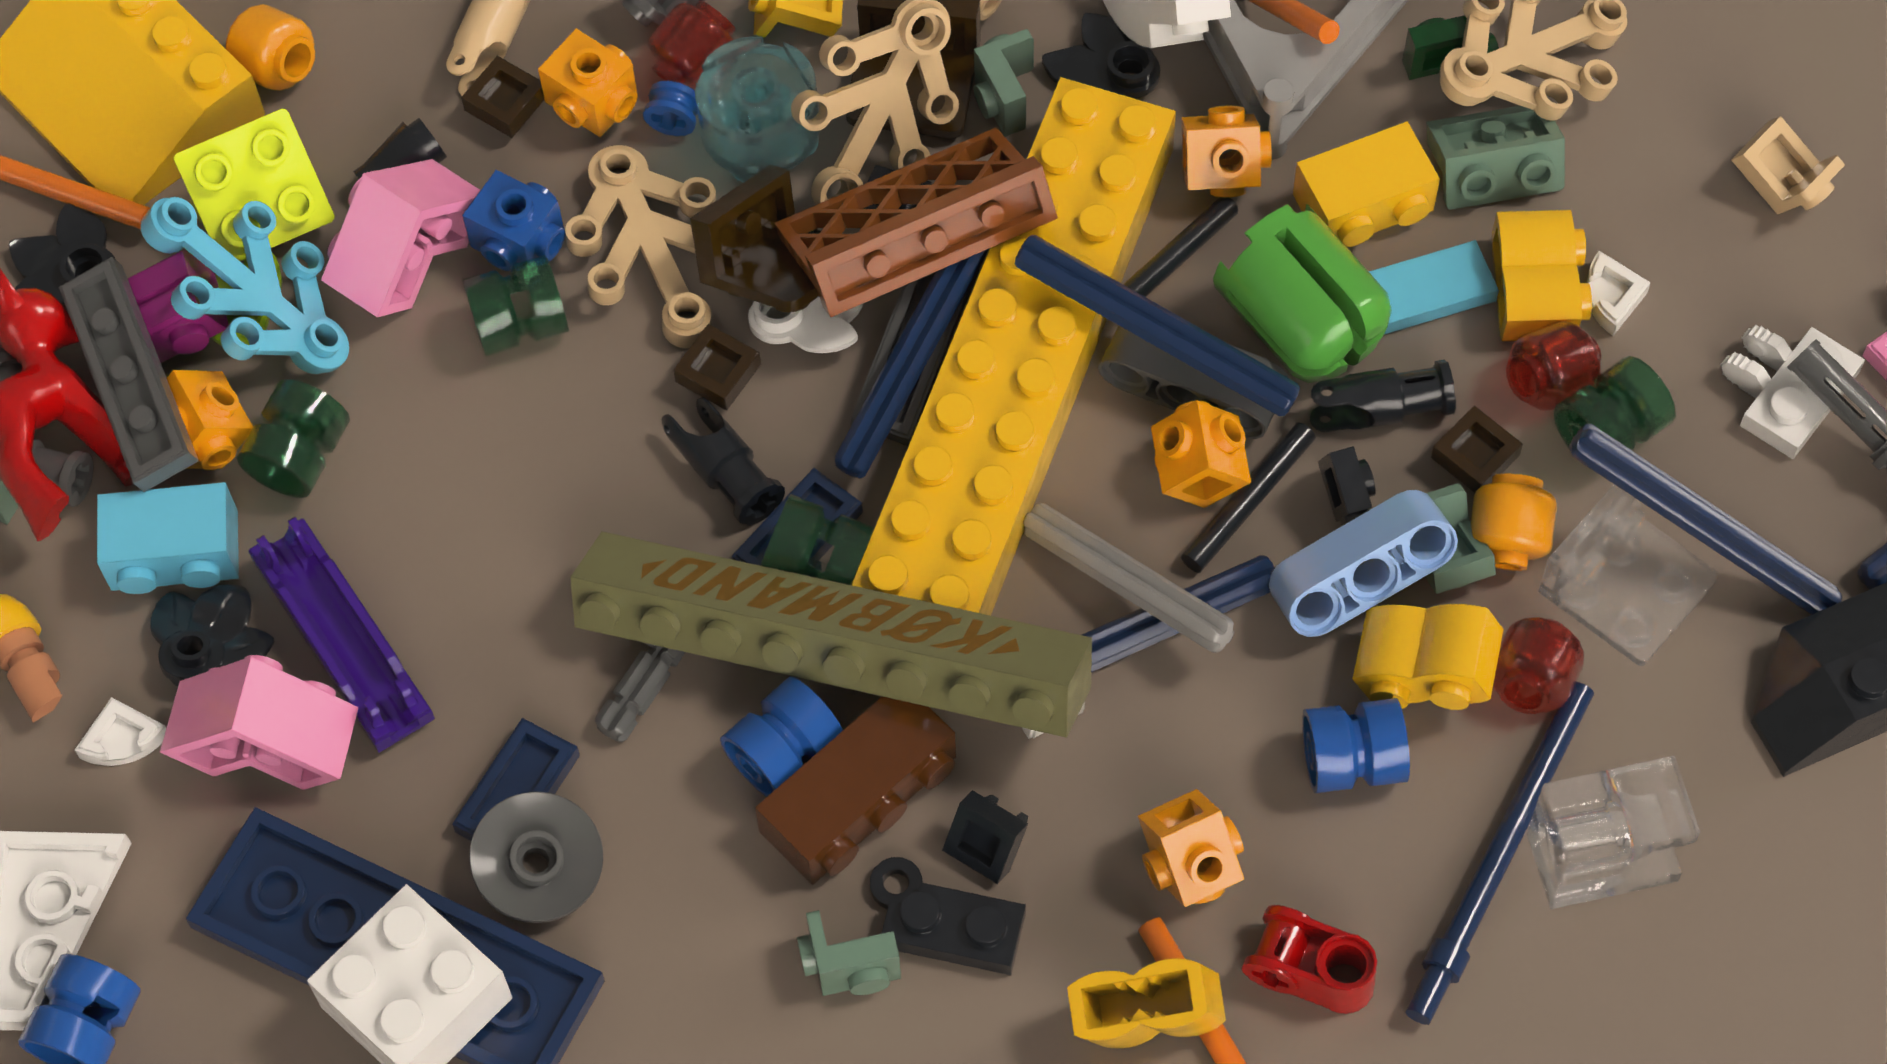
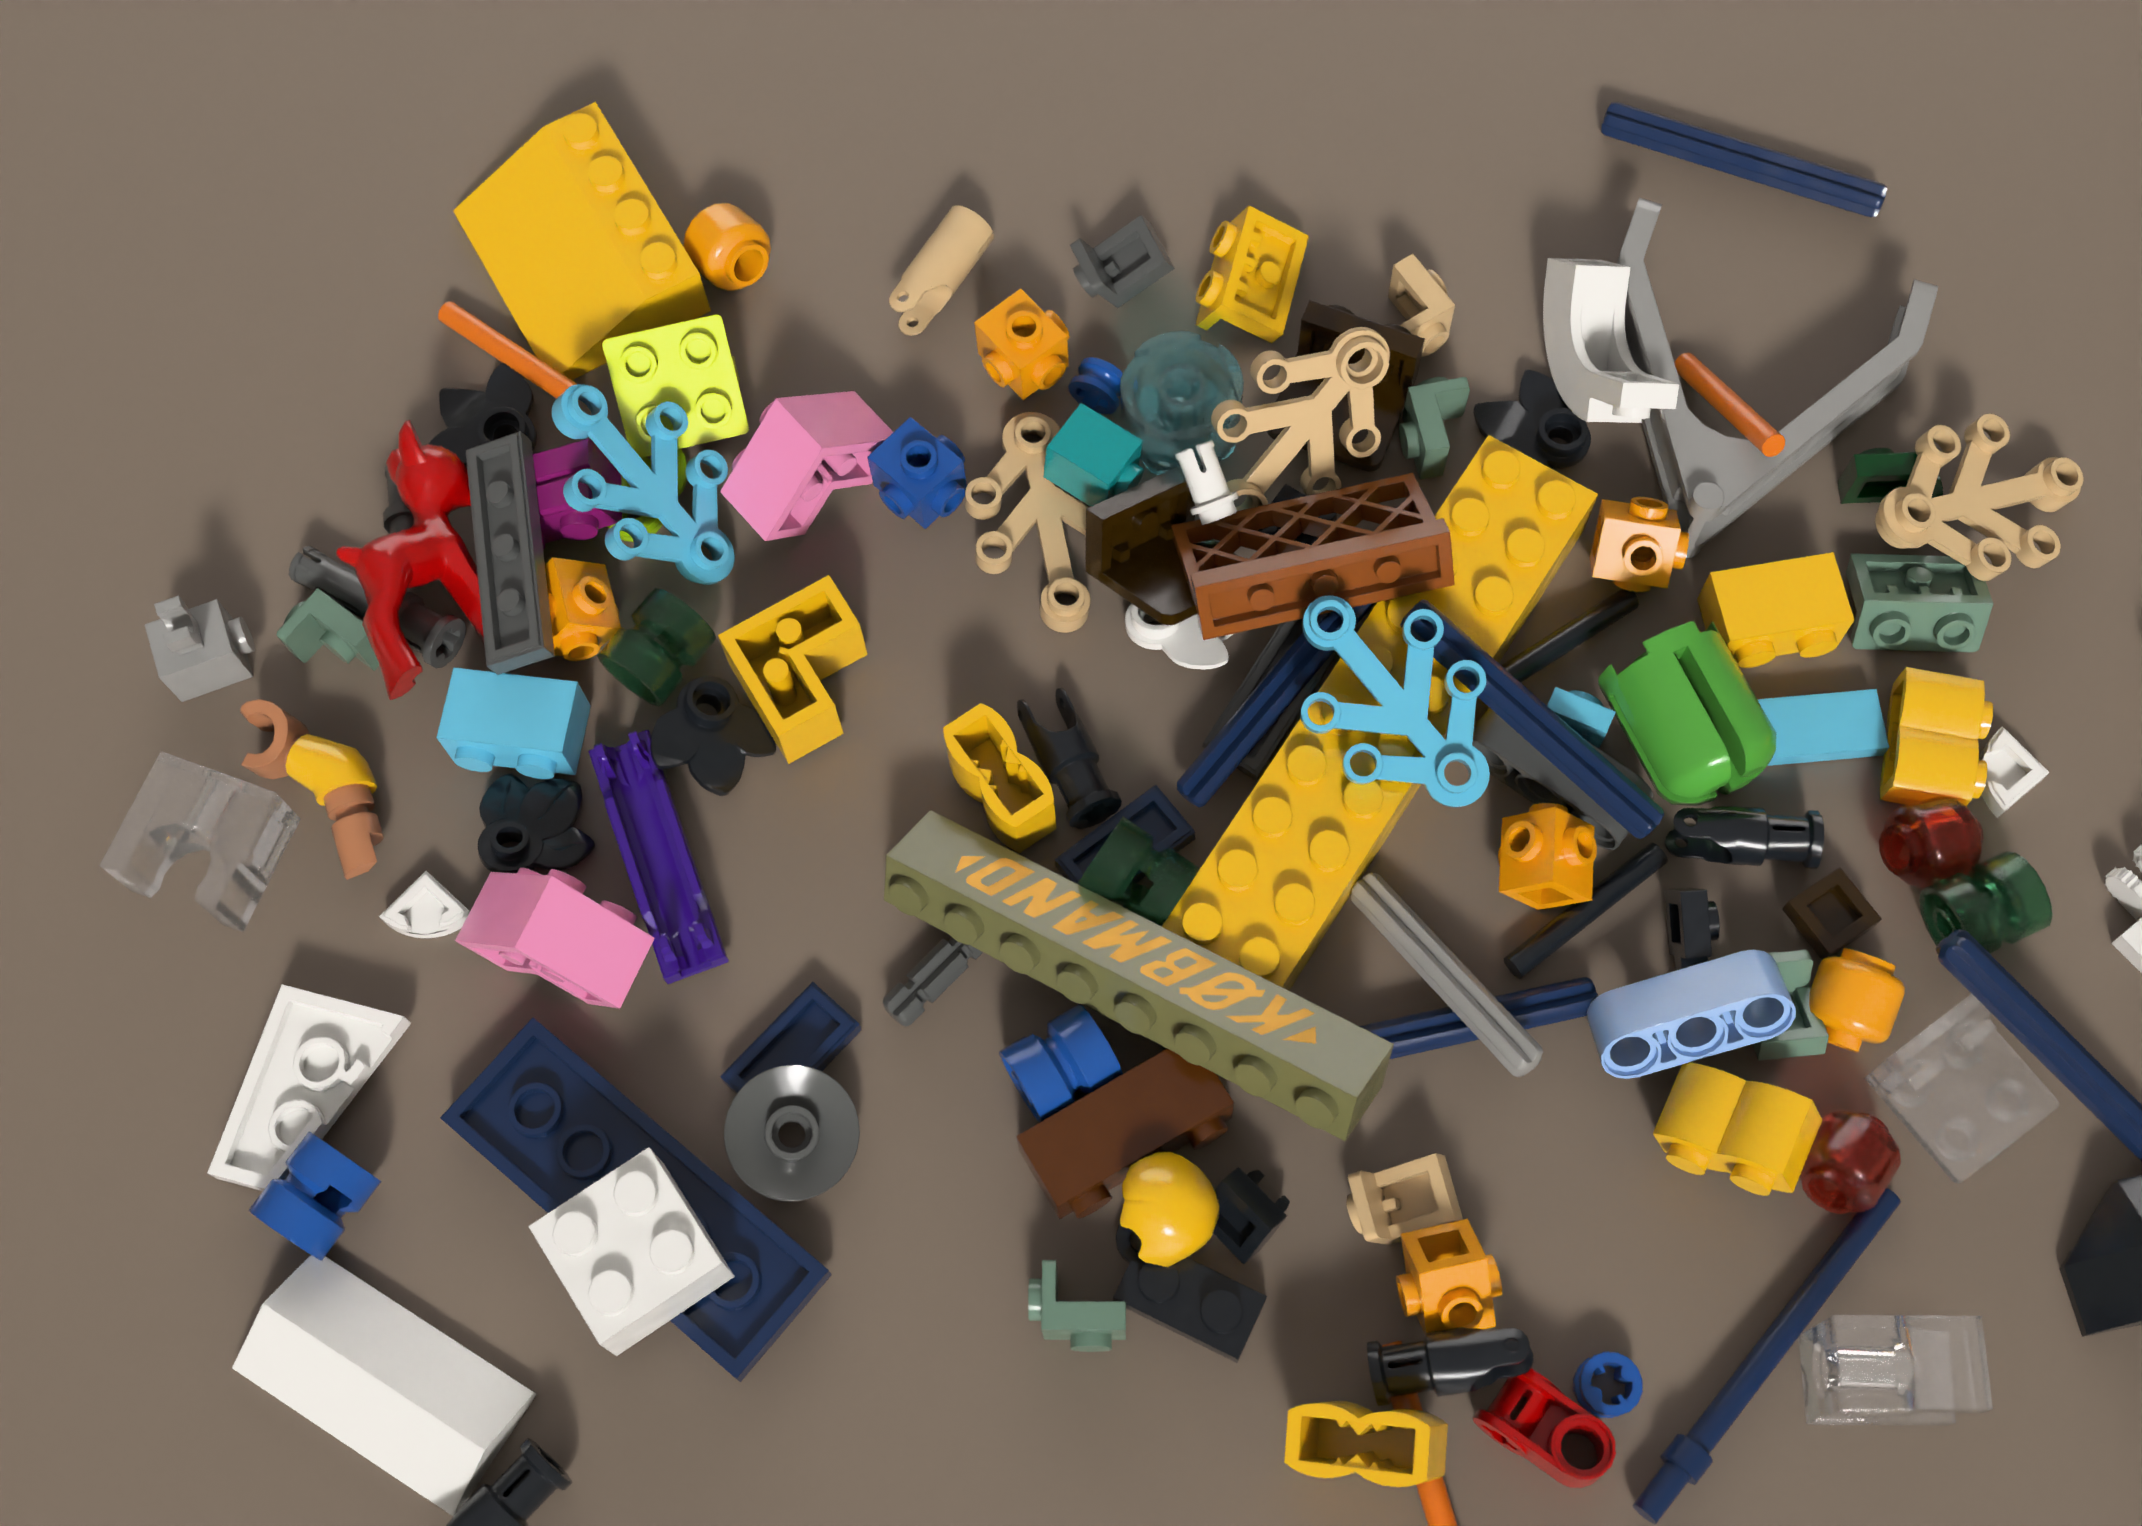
camera: 15 degrees right, 5 degrees up
(368, 518) = (710, 743): none -> black plate
(403, 147) = (829, 374): black cone -> none
(425, 424) = (786, 655): none -> yellow brick
(495, 313) = (879, 560): clear green wheel -> none
(503, 96) = (938, 340): dark brown plate -> none
(662, 488) = (1008, 784): none -> yellow brick
(683, 172) = (1093, 457): none -> teal brick
(687, 40) = (1128, 320): clear red head -> none
(717, 367) = (1083, 660): dark brown plate -> none
(802, 176) = (1207, 487): none -> white pin
(916, 838) = (1168, 1207): none -> yellow hair
(1031, 340) = (1401, 710): none -> medium azure plant
(1132, 788) = (1402, 1199): none -> tan bracket
(1207, 314) = (1582, 713): none -> medium azure plate
(1208, 915) = (1448, 1362): none -> black piece
(1356, 745) = (1642, 1207): blue wheel -> none
(1374, 900) = (1624, 1372): none -> blue bush

